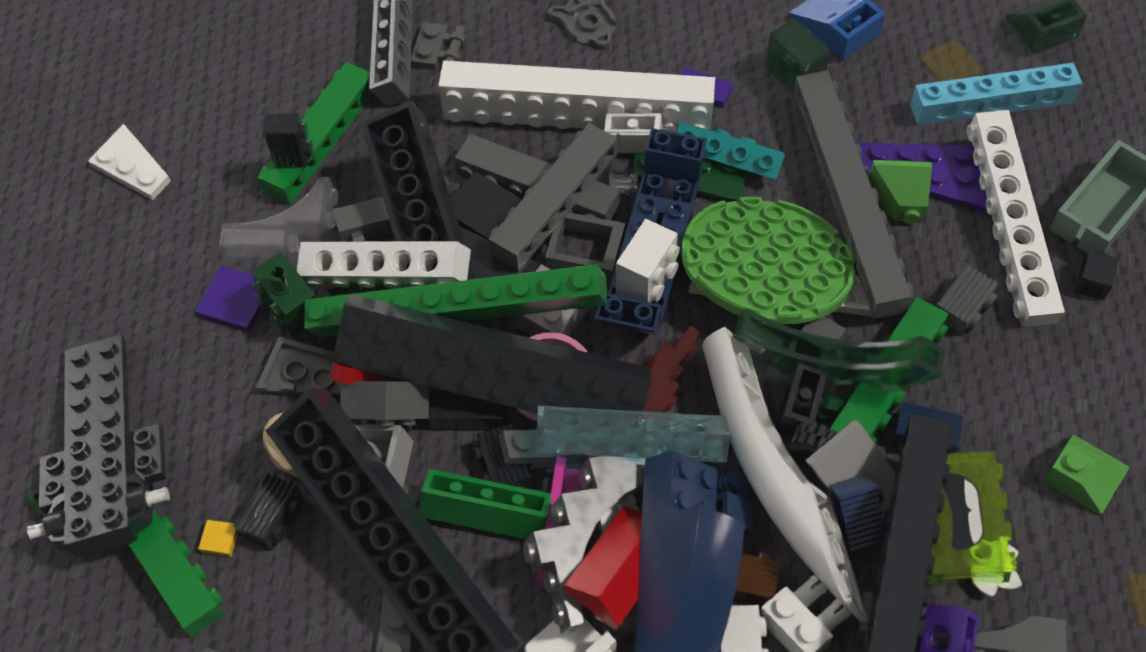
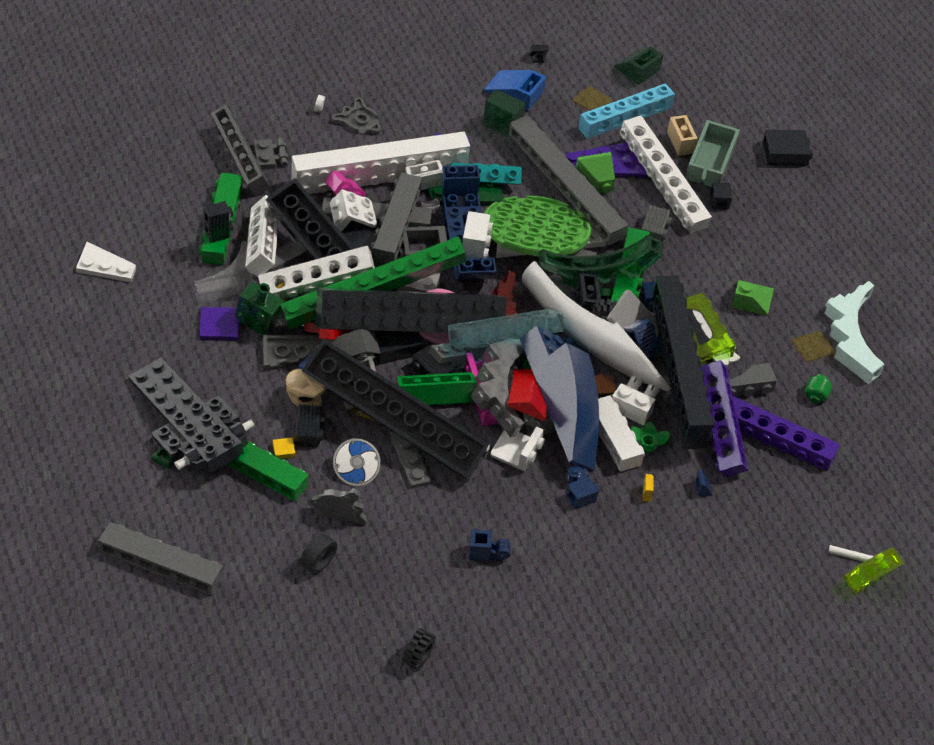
camera: 30 degrees left, 10 degrees down
(306, 601) = (356, 462): none -> shield
(332, 191) = (261, 239): none -> white brick
(495, 165) = (349, 206): none -> white bracket
(506, 126) = (337, 181): none -> dark pink brick
(1069, 155) = (682, 135): none -> tan brick

